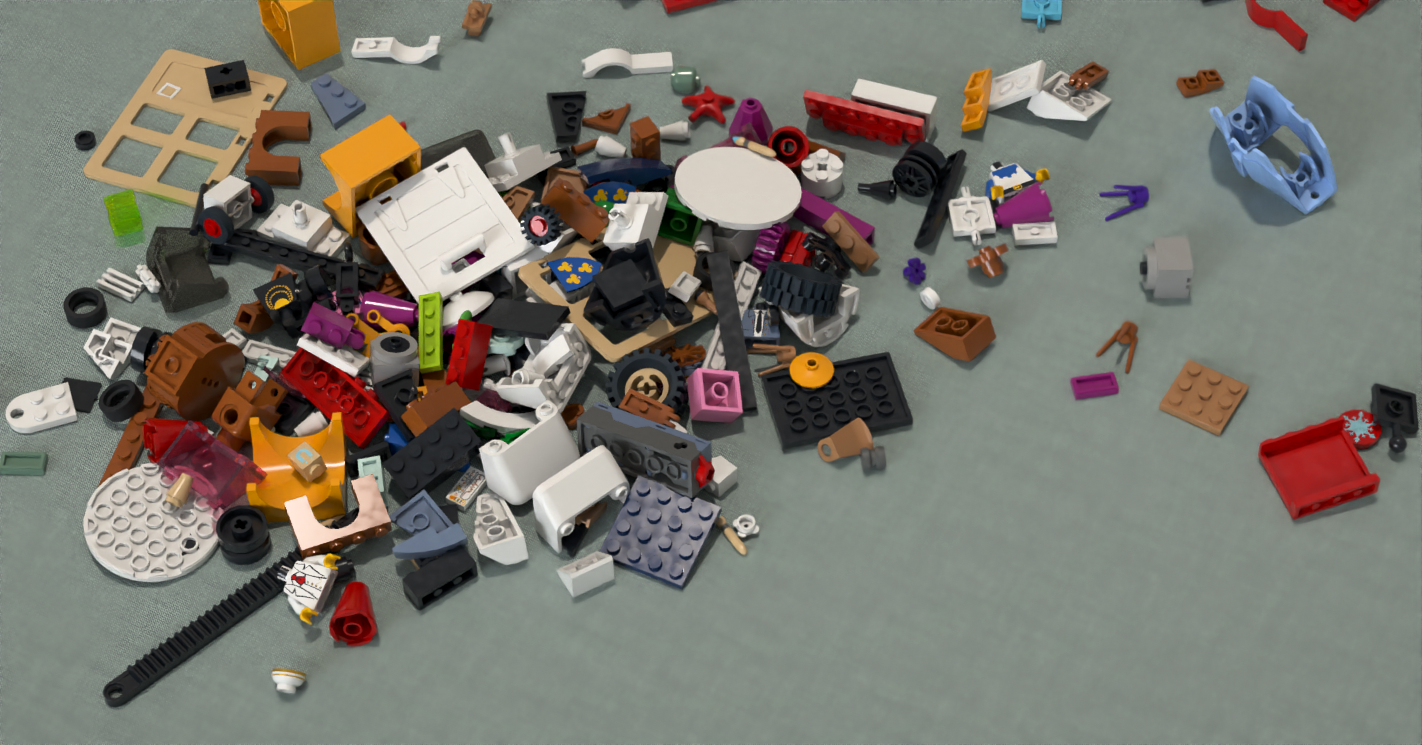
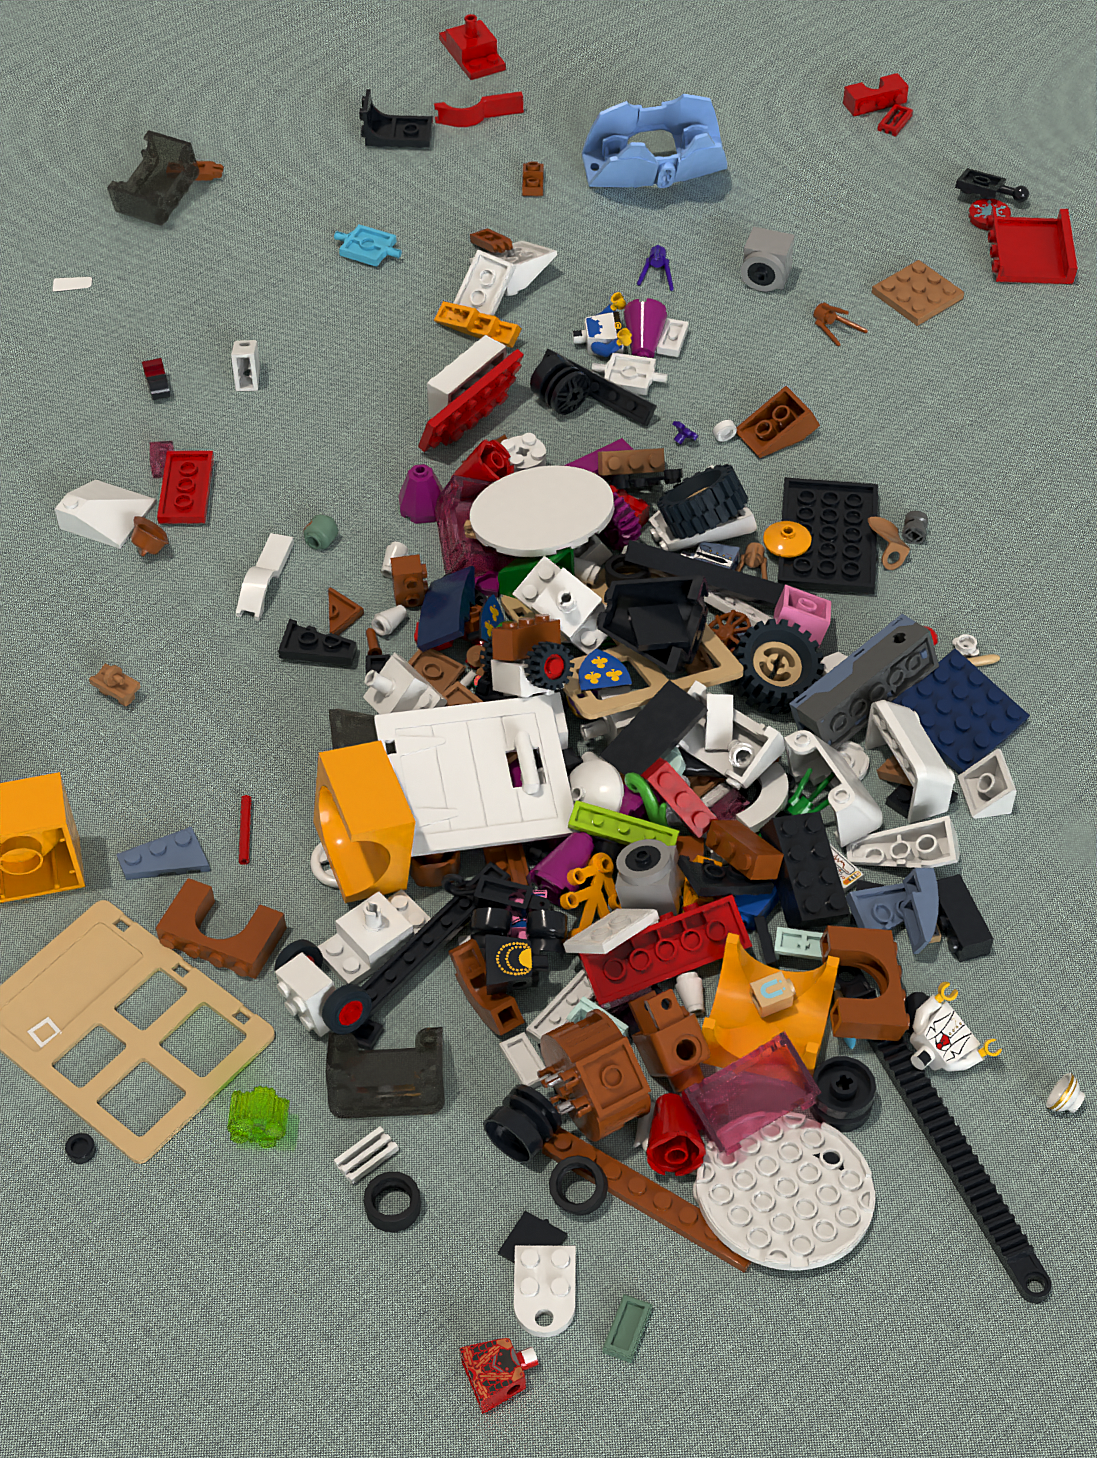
camera: 70 degrees left, 0 degrees up
(112, 346) = (472, 1179): white slope -> none
(148, 278) = (376, 1117): white axle -> none
(179, 492) = (765, 1140): tan cone -> none
(198, 209) = (294, 1030): black bar -> none
(227, 79) = (73, 955): black brick -> none
(332, 328) = (580, 920): magenta brick -> none
(354, 616) = (993, 1005): red cone -> none
(392, 48) = (112, 781): white piece -> none
(648, 408) = (818, 663): dark orange hinge -> none
(707, 104) = (368, 524): red animal -> none
(741, 141) = (469, 493): tan piece -> none
(772, 315) = (717, 539): black tile -> none
(884, 189) = (562, 423): black cone -> none
(989, 260) = (697, 372): dark orange plant -> none
(1094, 385) = (876, 356): magenta tile -> none

